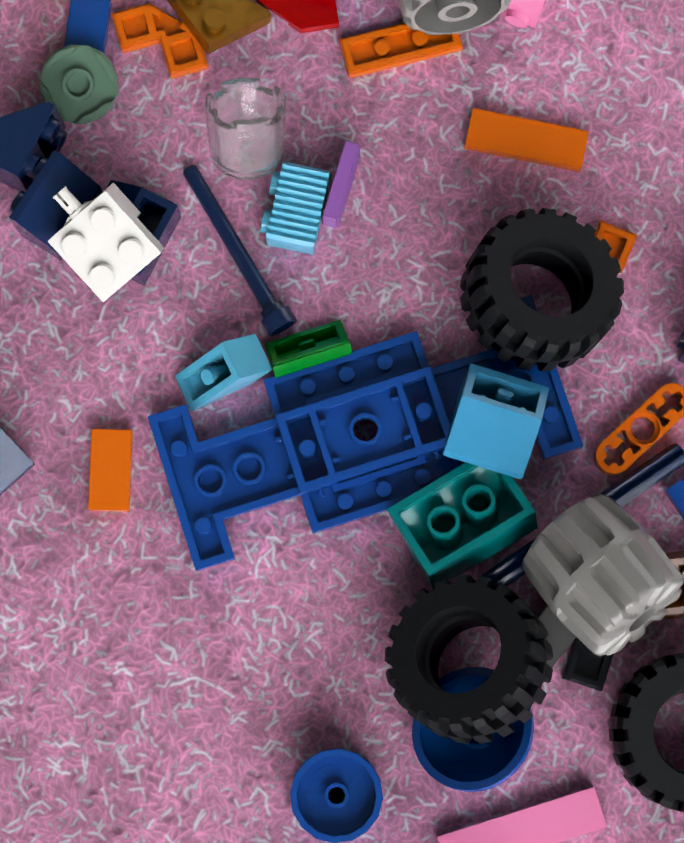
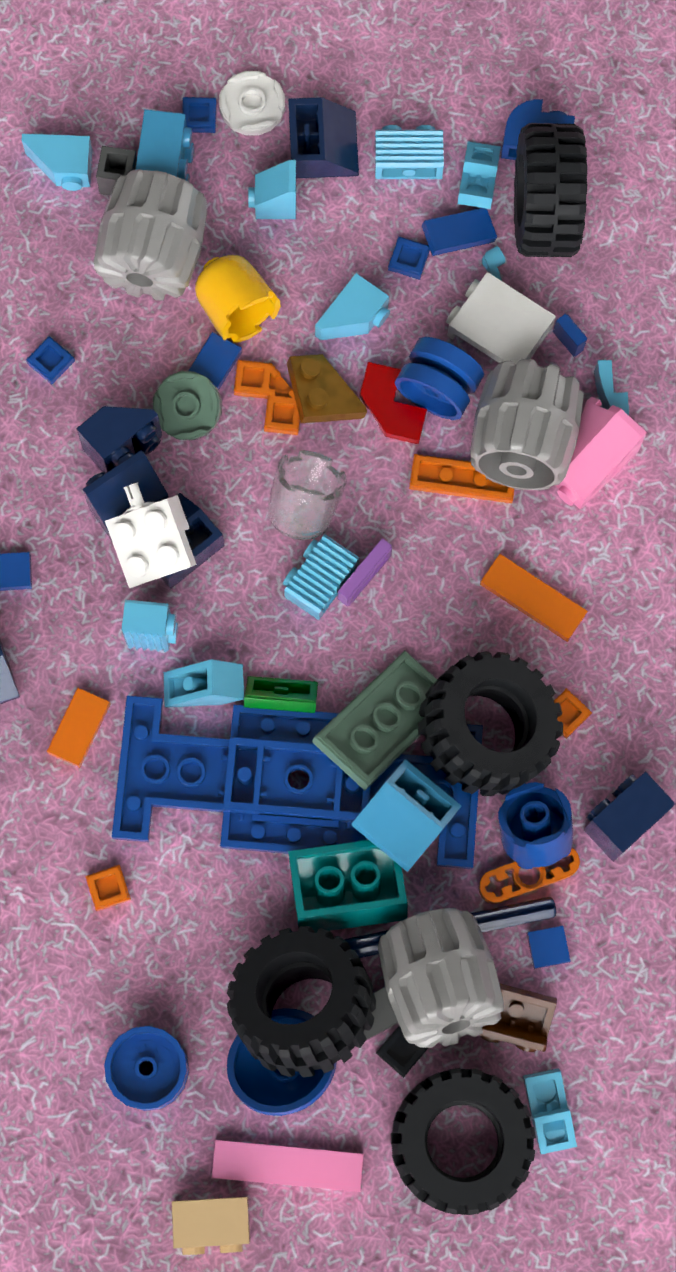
camera: 20 degrees right, 5 degrees down
(140, 333) = (149, 625): none -> medium azure brick
(213, 624) = (108, 888): none -> orange tile
(275, 314) = (265, 657): dark blue piece -> none
(423, 335) = (378, 722): none -> sand green tile
(631, 376) = (536, 825): none -> blue brick

